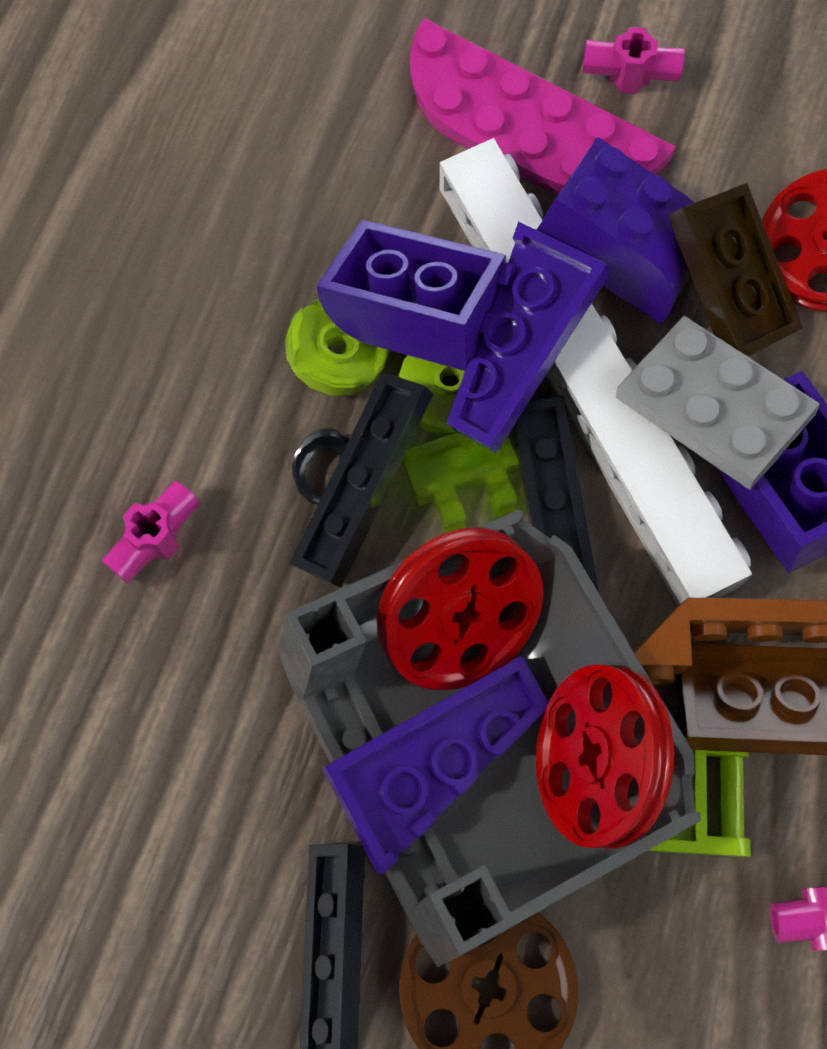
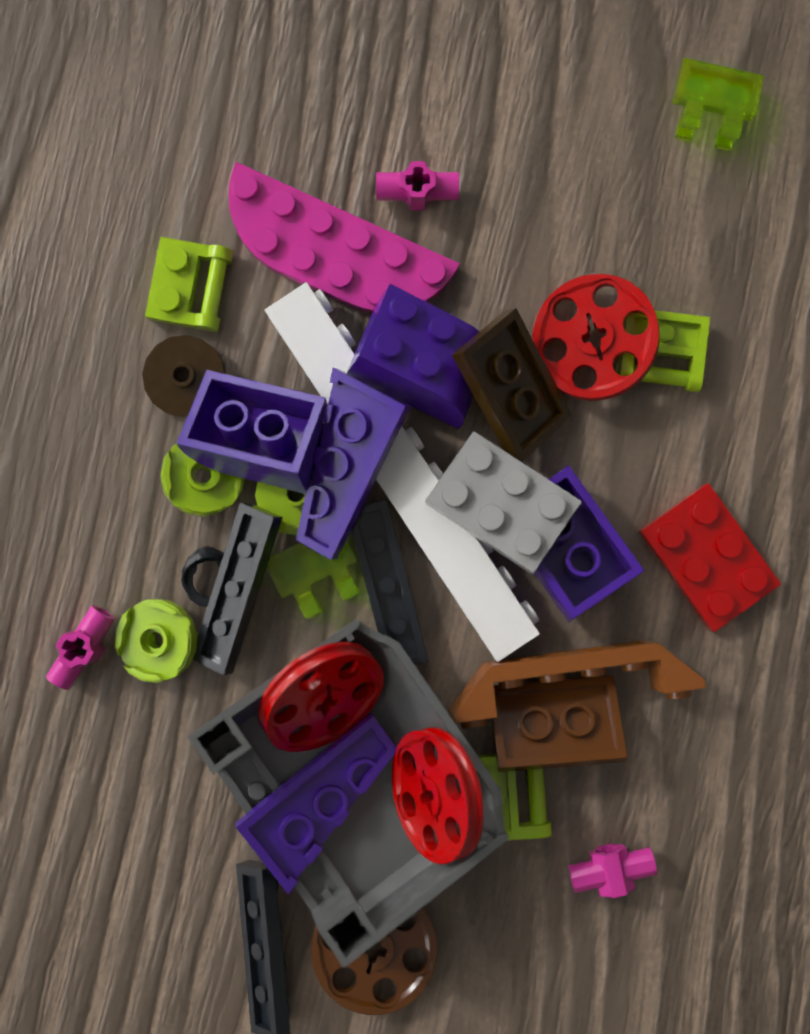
camera: 10 degrees left, 15 degrees up
(229, 521) = (137, 642): none -> lime plate
(302, 229) = (164, 364): none -> dark brown plate
(336, 135) = (176, 282): none -> lime plate

